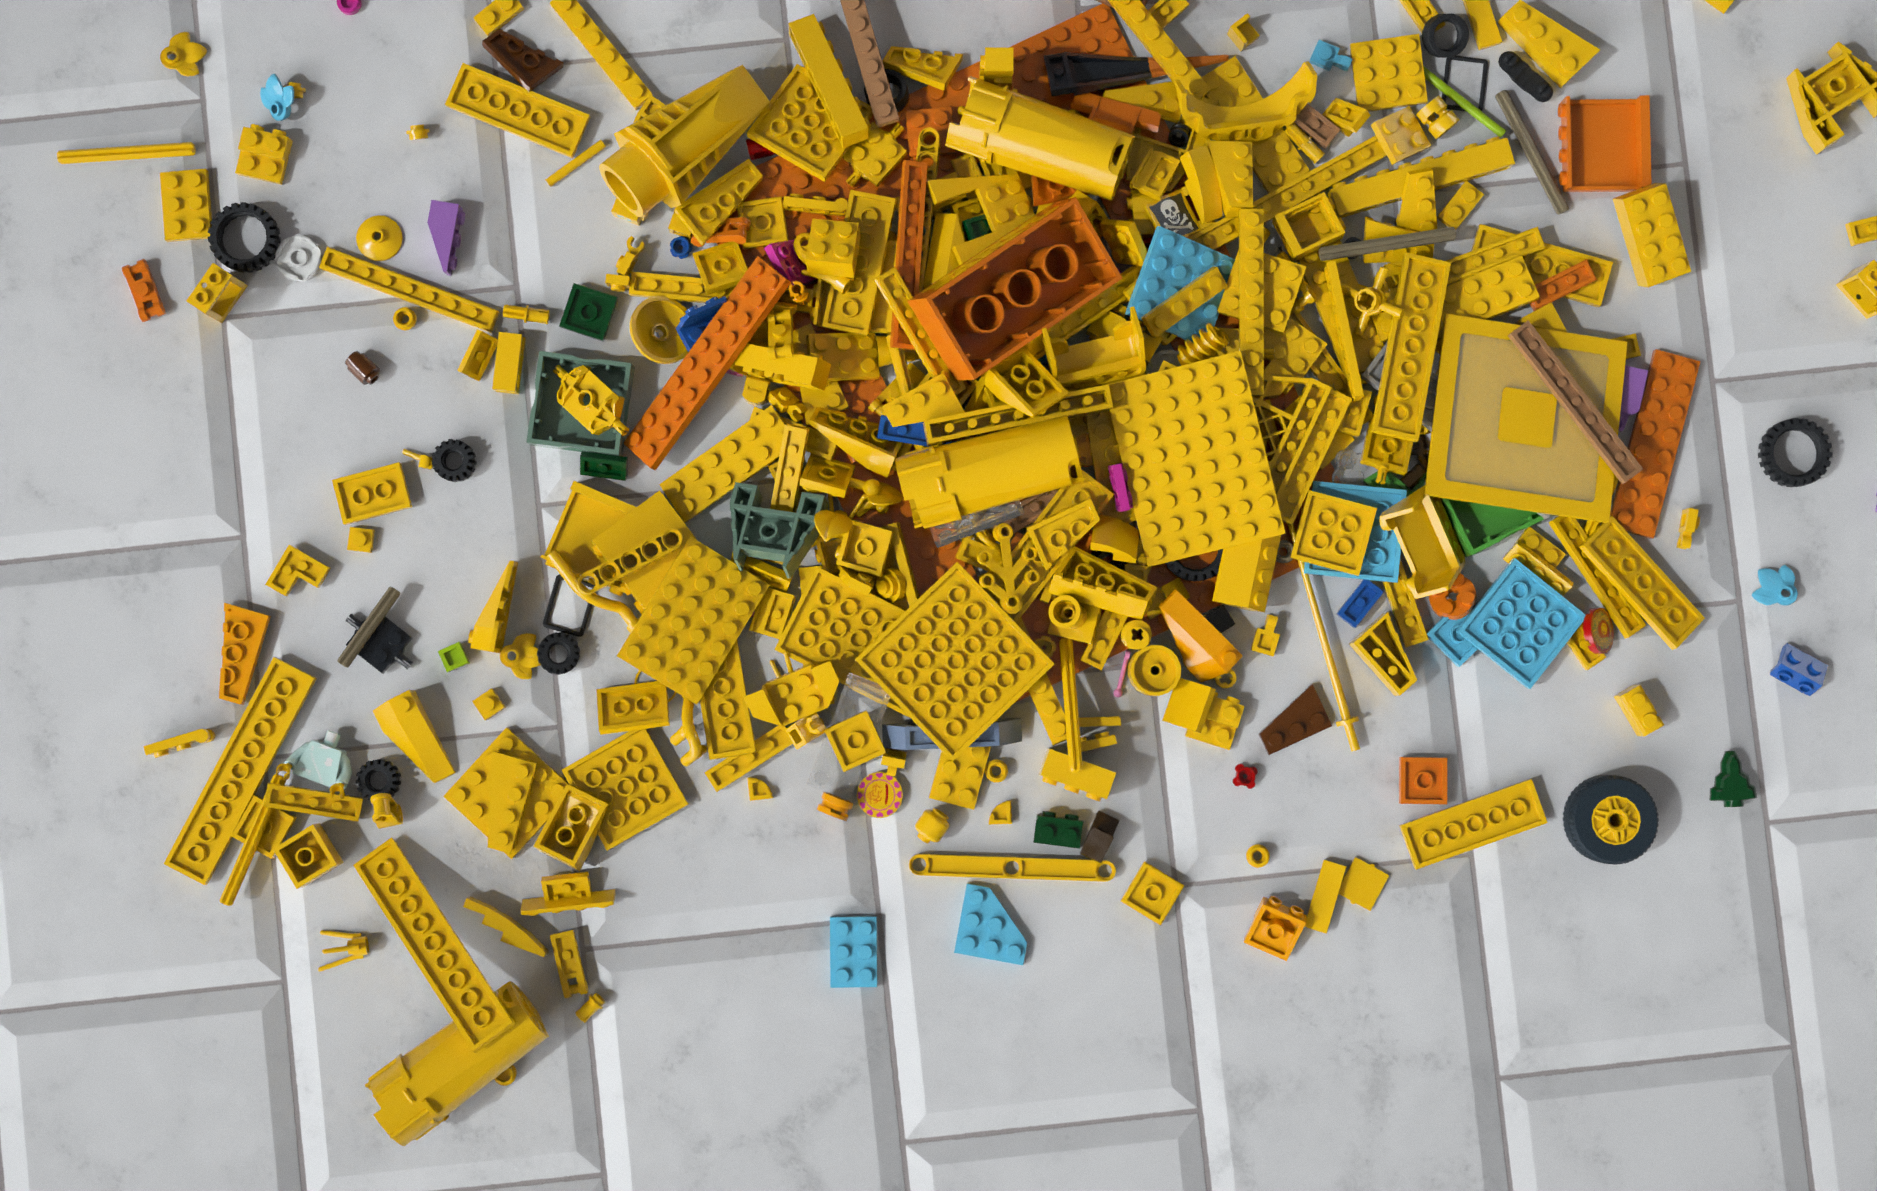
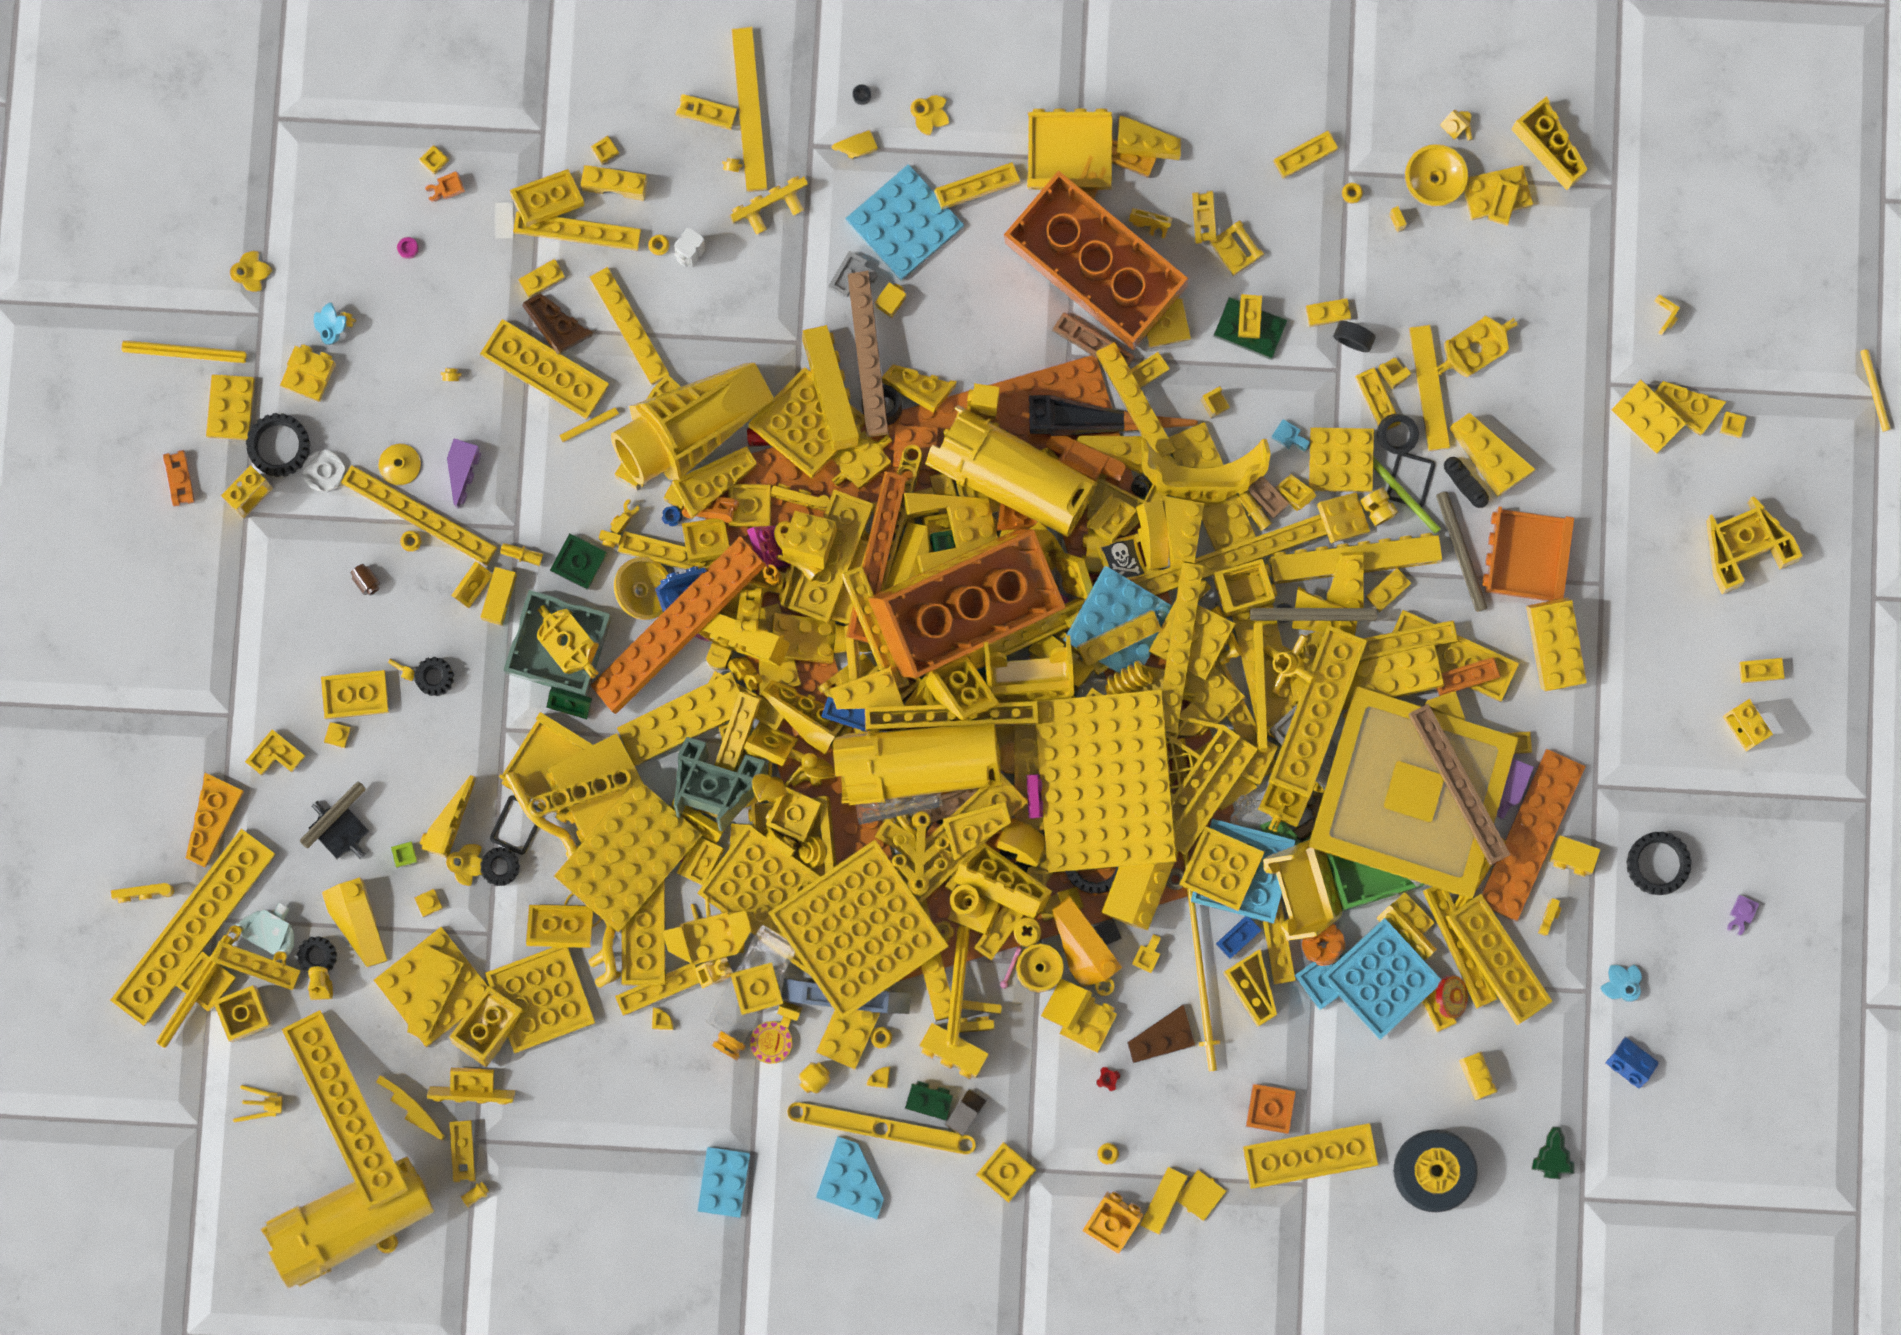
camera: 10 degrees right, 5 degrees down
(1704, 459) = (1574, 855): none -> yellow brick

